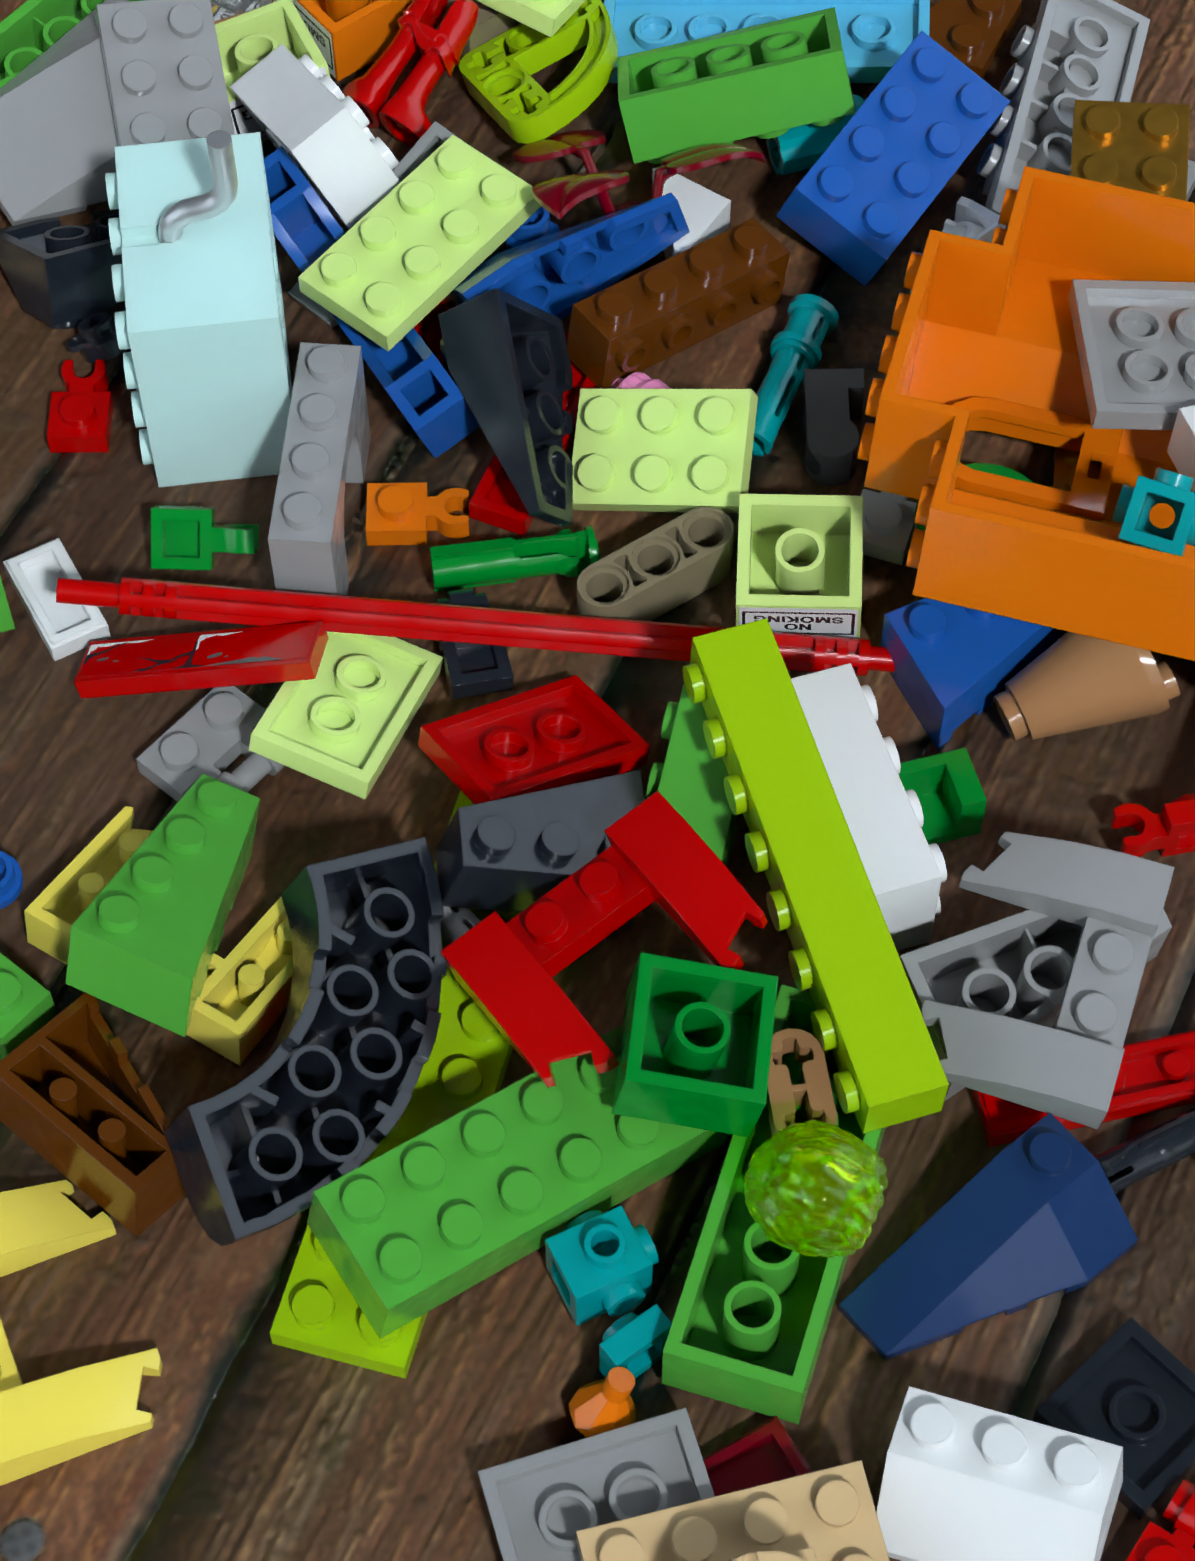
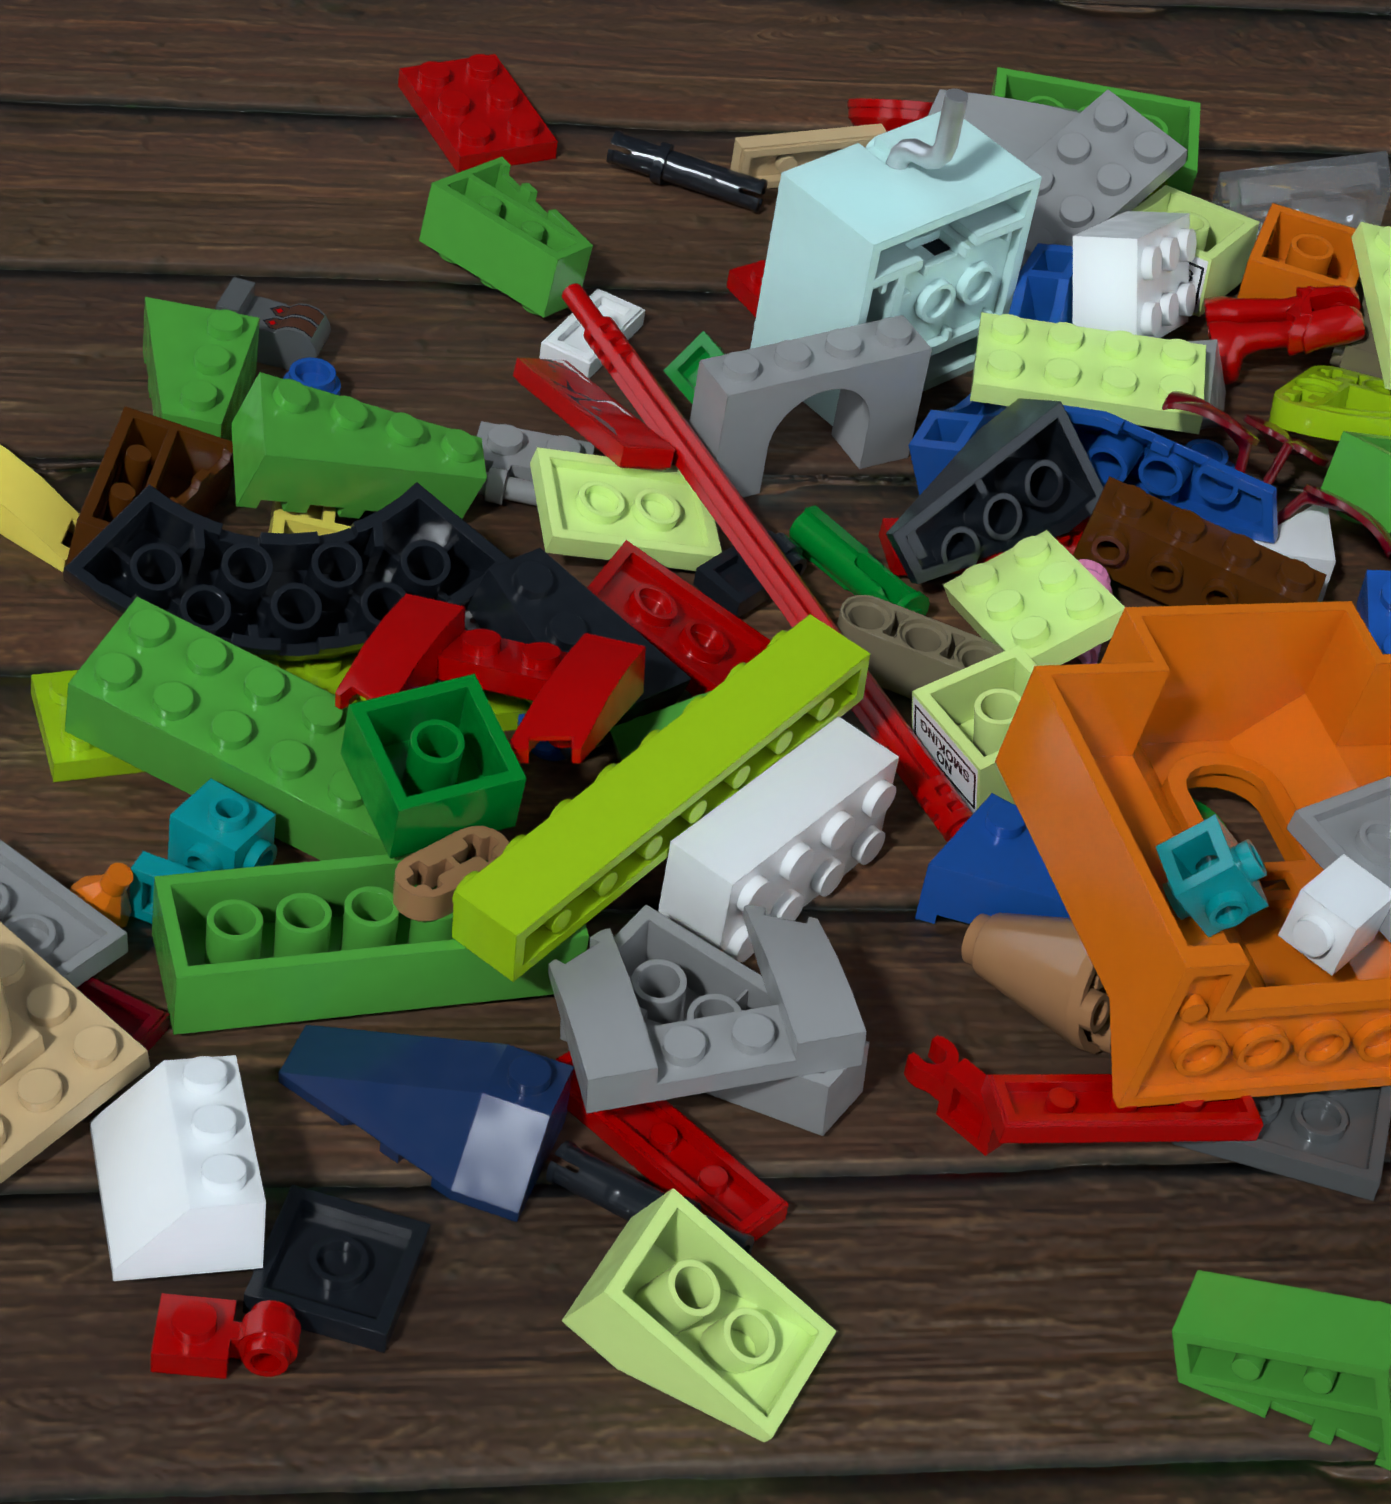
camera: 50 degrees right, 15 degrees down
(406, 513) = (850, 497): orange plate -> none
(815, 1189) = (356, 887): clear neon green hair -> none
(947, 793) = (860, 916): green panel -> none

